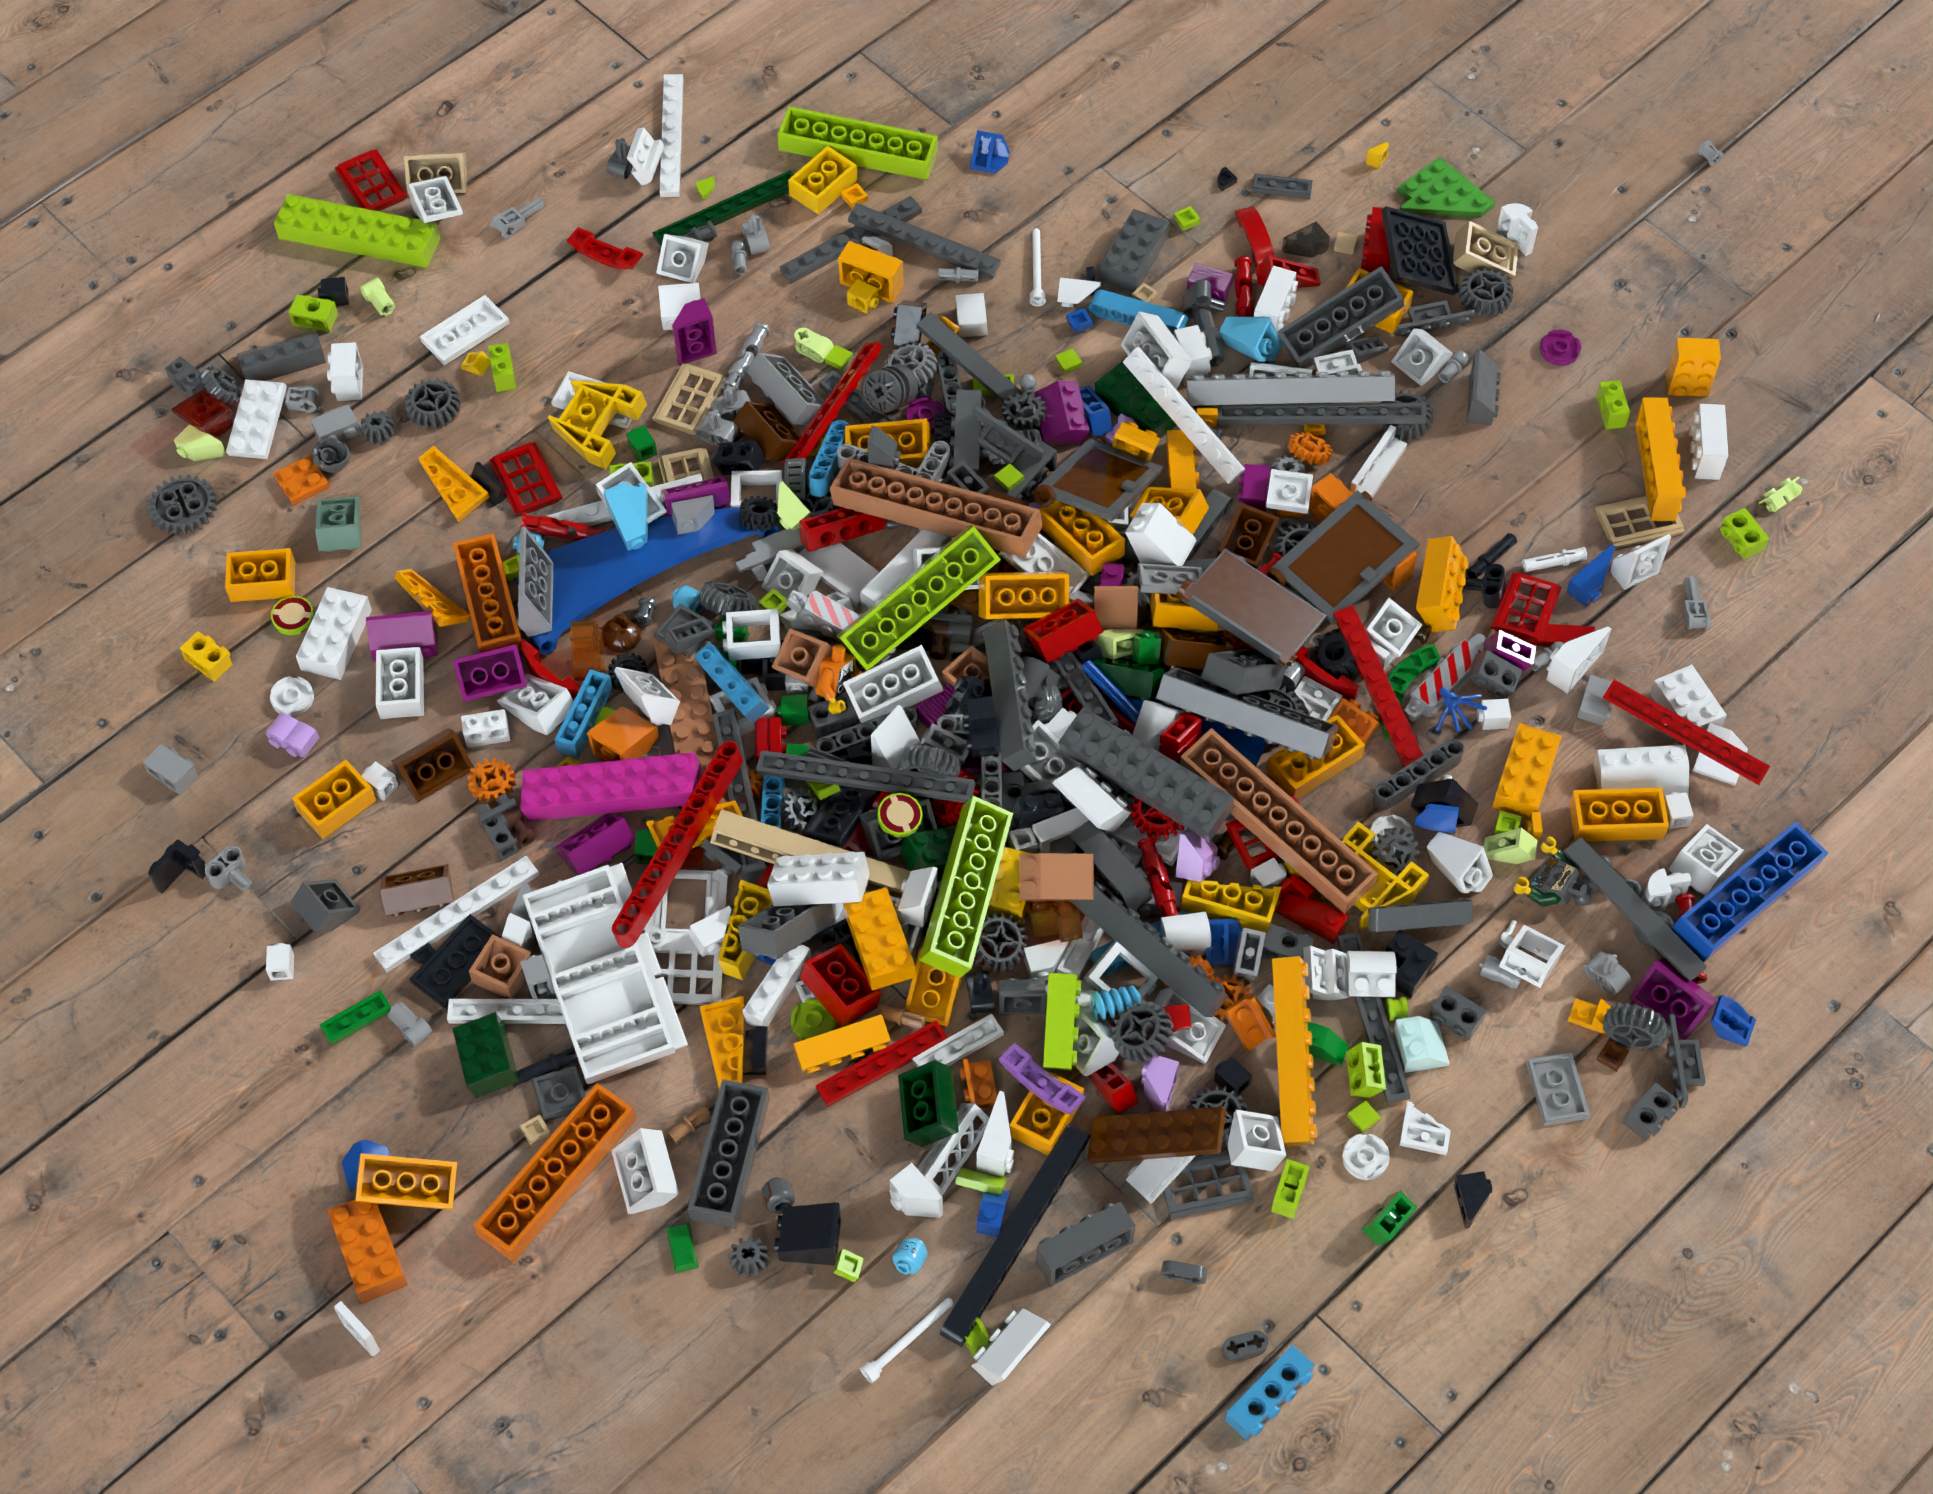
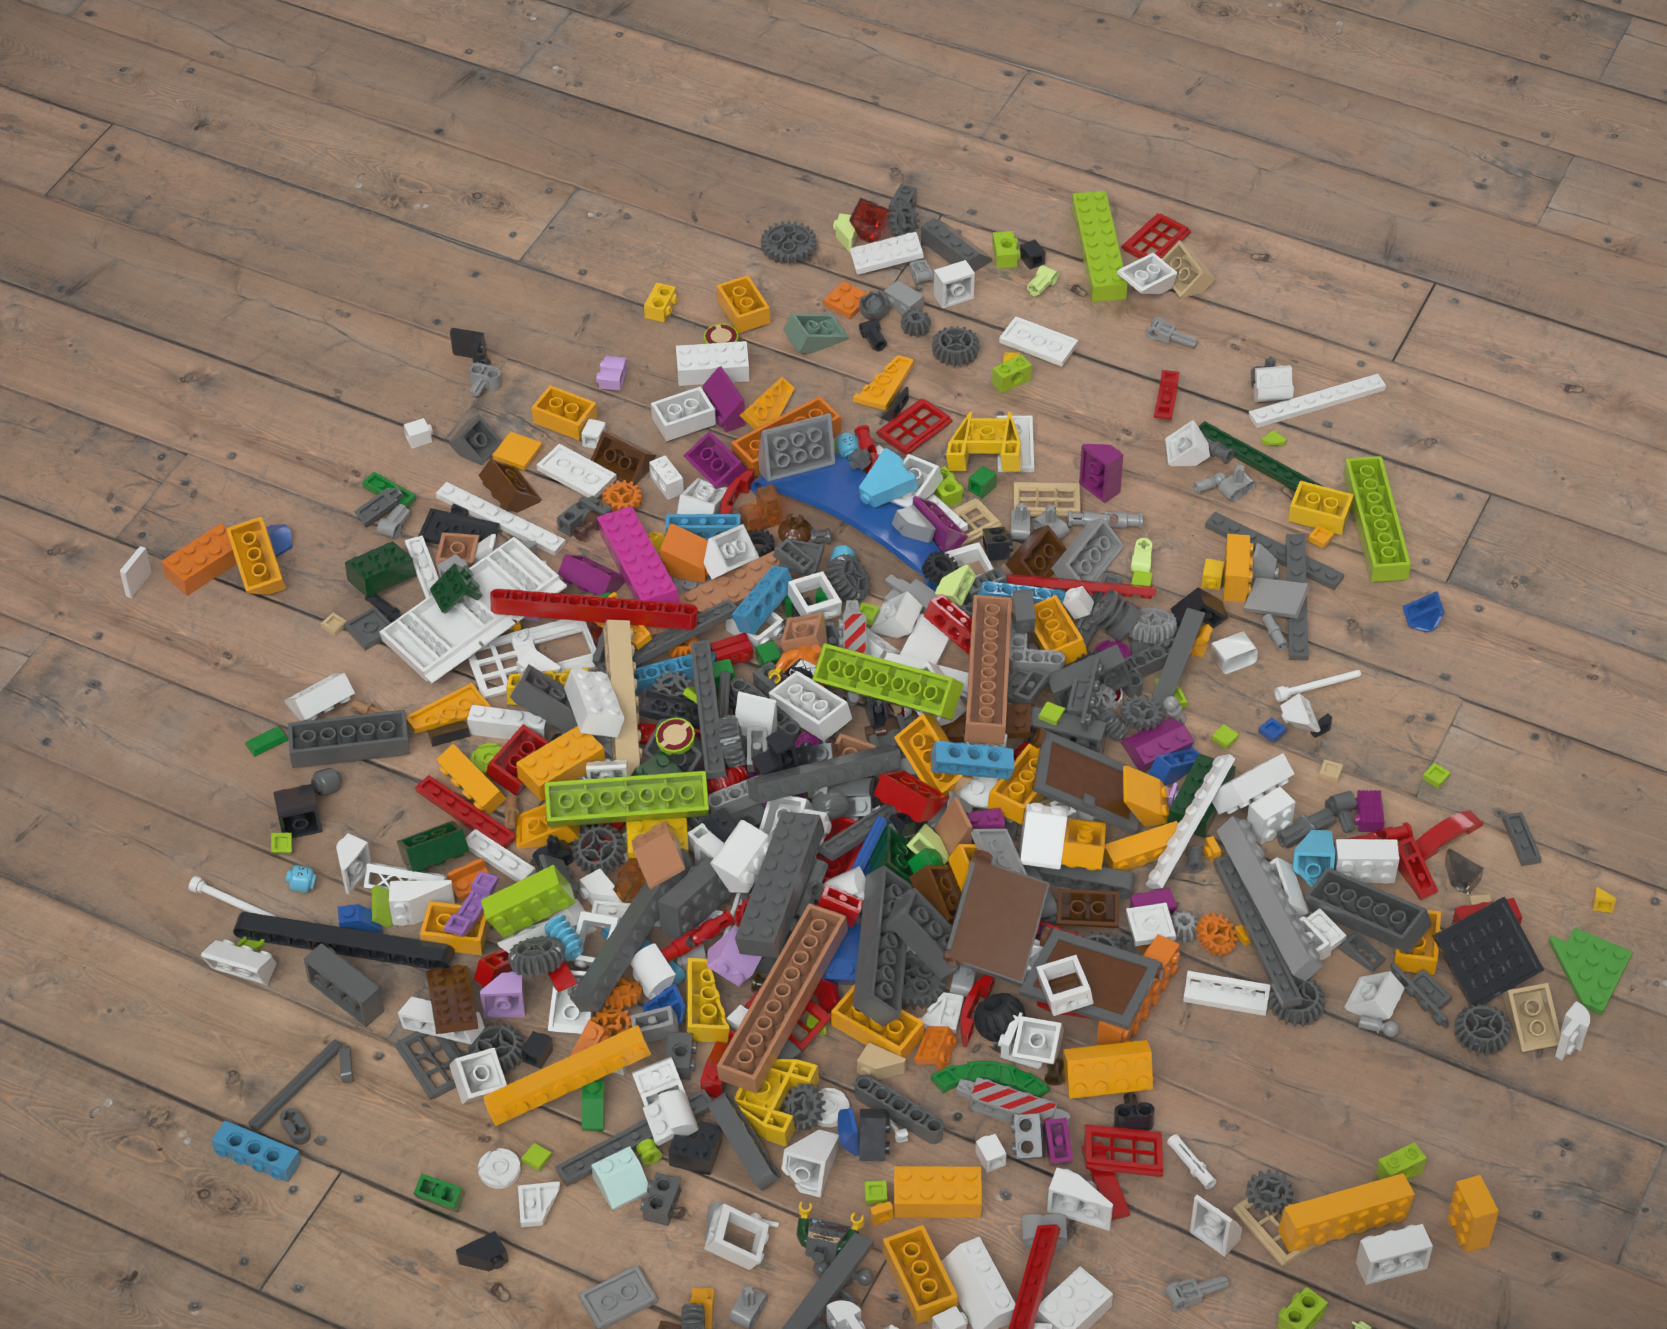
camera: 70 degrees right, 10 degrees down
(171, 769) = (555, 318): light grey brick -> none
(292, 696) = (649, 362): white tile -> none
(359, 867) = (517, 450): none -> light orange tile
(365, 470) = (872, 332): none -> black piece
(378, 1033) = (379, 505): none -> dark grey hinge
(427, 815) = (576, 471): none -> white plate
(554, 1172) = (298, 641): orange brick -> none
(568, 534) = (859, 459): none -> dark grey gear
(574, 977) = (453, 586): none -> dark green bracket
(673, 299) = (1134, 459): white slope -> none
(750, 1264) = (268, 780): dark grey gear -> none
(855, 413) = (1078, 602): none -> white brick
(924, 254) = (1276, 597): none -> light grey tile
(1059, 555) = (963, 764): none -> dark azure brick
(1125, 309) = (1304, 769): dark azure beam -> none
(1134, 250) = (1373, 745): dark grey brick -> none
(1190, 1332) = (295, 1085): none -> dark grey axle
(1226, 179) = (1504, 794): black tile -> none
(1290, 1189) = (443, 1114): lime brick -> none
(1355, 592) = (1060, 1002): none -> white window
(1357, 774) = (880, 1063): none -> tan slope
(1365, 1070) = (575, 1140): lime brick -> none
(1378, 685) = (973, 1047): red plate -> none
(1452, 702) = (981, 1110): blue plant -> none
(1483, 390) = (1357, 1049): dark grey slope -> none
(1491, 556) = (1172, 1110): black pin -> none
(1511, 847) = (851, 1200): yellowish green slope -> none
(1560, 347) = (1453, 1110): magenta tile -> none
(1588, 582) = (1179, 1195): blue slope -> none
(1614, 509) = (1269, 1192): none -> dark grey gear

